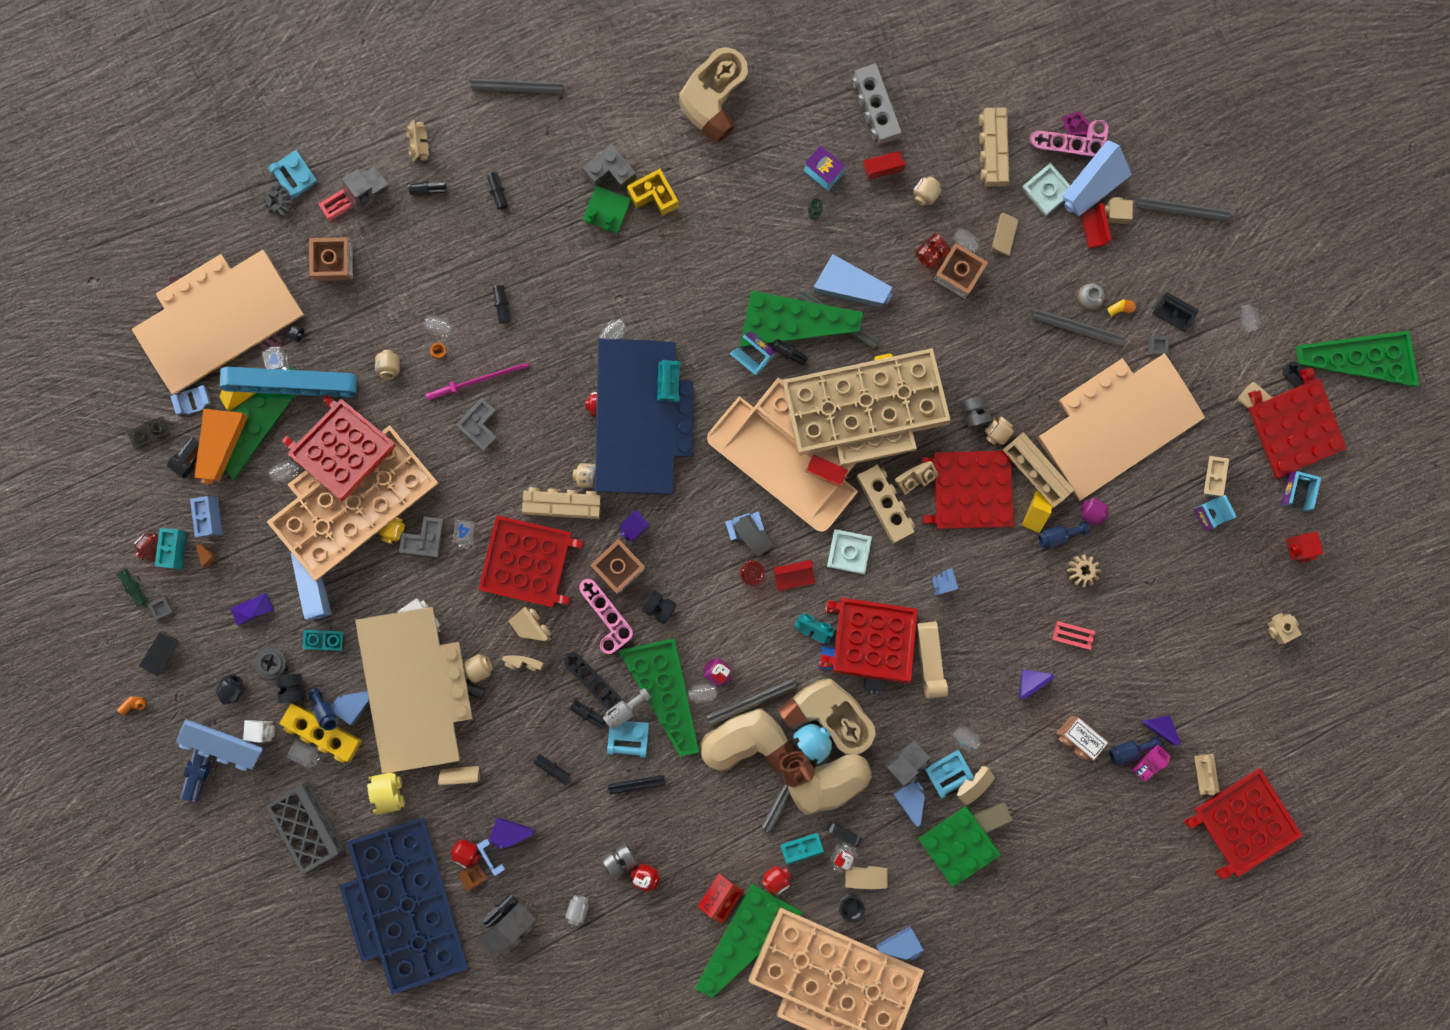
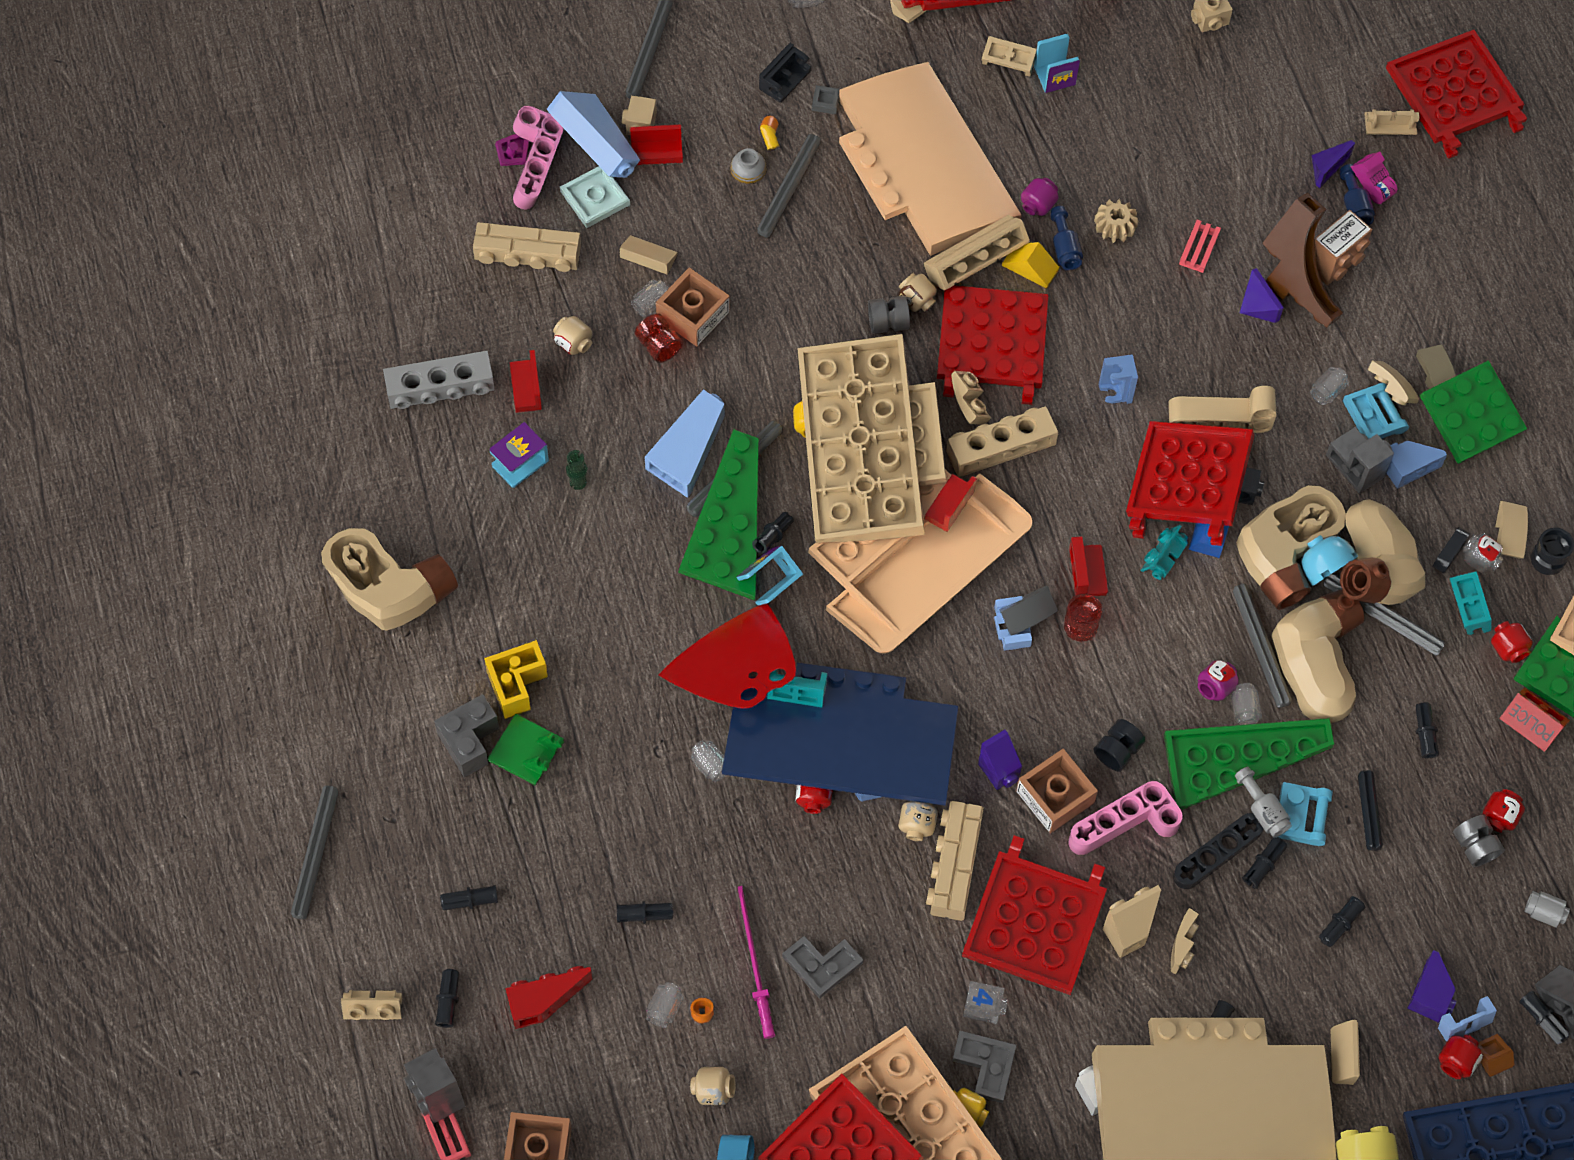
camera: 80 degrees left, 20 degrees down
(430, 243) = (539, 999): none -> red slope
(477, 668) = (1187, 1003): tan head -> none
(689, 332) = (724, 658): none -> red piece
(700, 821) = (1426, 731): none -> black axle
(849, 551) = (1062, 497): light aqua tile -> none
(1054, 708) = (1297, 272): none -> reddish brown arch

